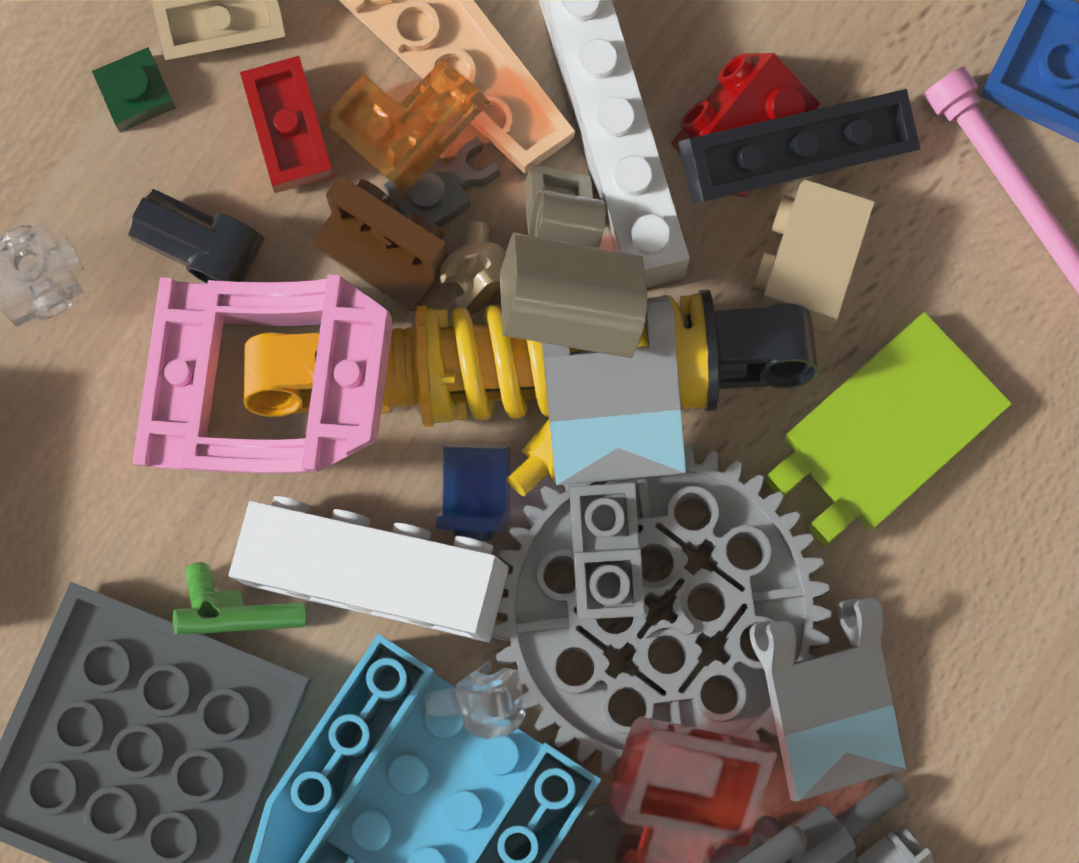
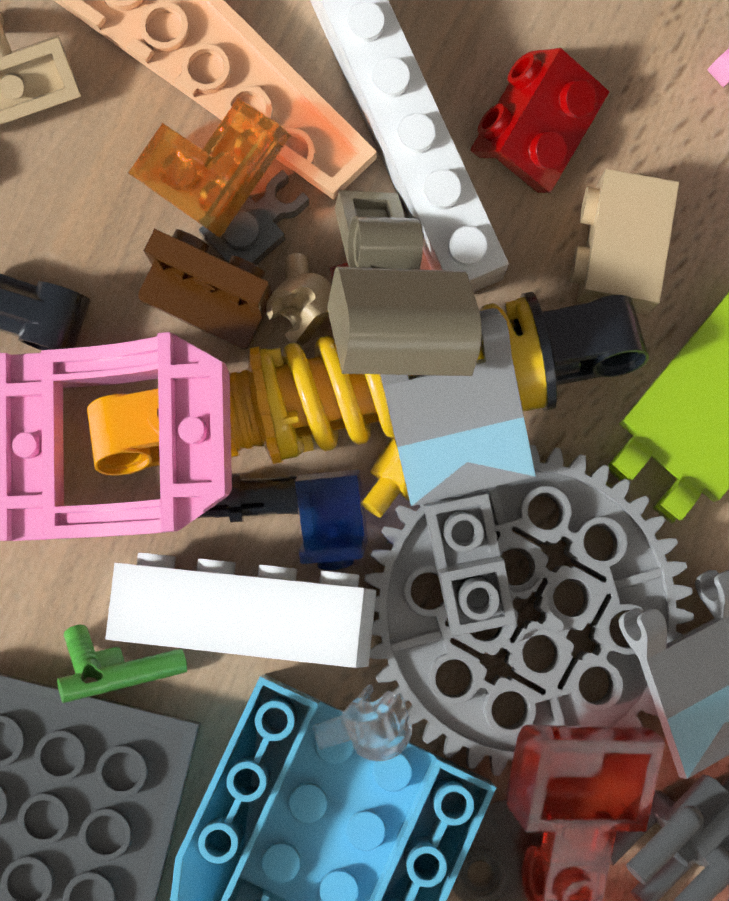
camera: 10 degrees left, 5 degrees up
(286, 124) = (95, 183): red plate -> none
(394, 460) = (257, 498): none -> black pin
(798, 146) = (597, 137): black plate -> none

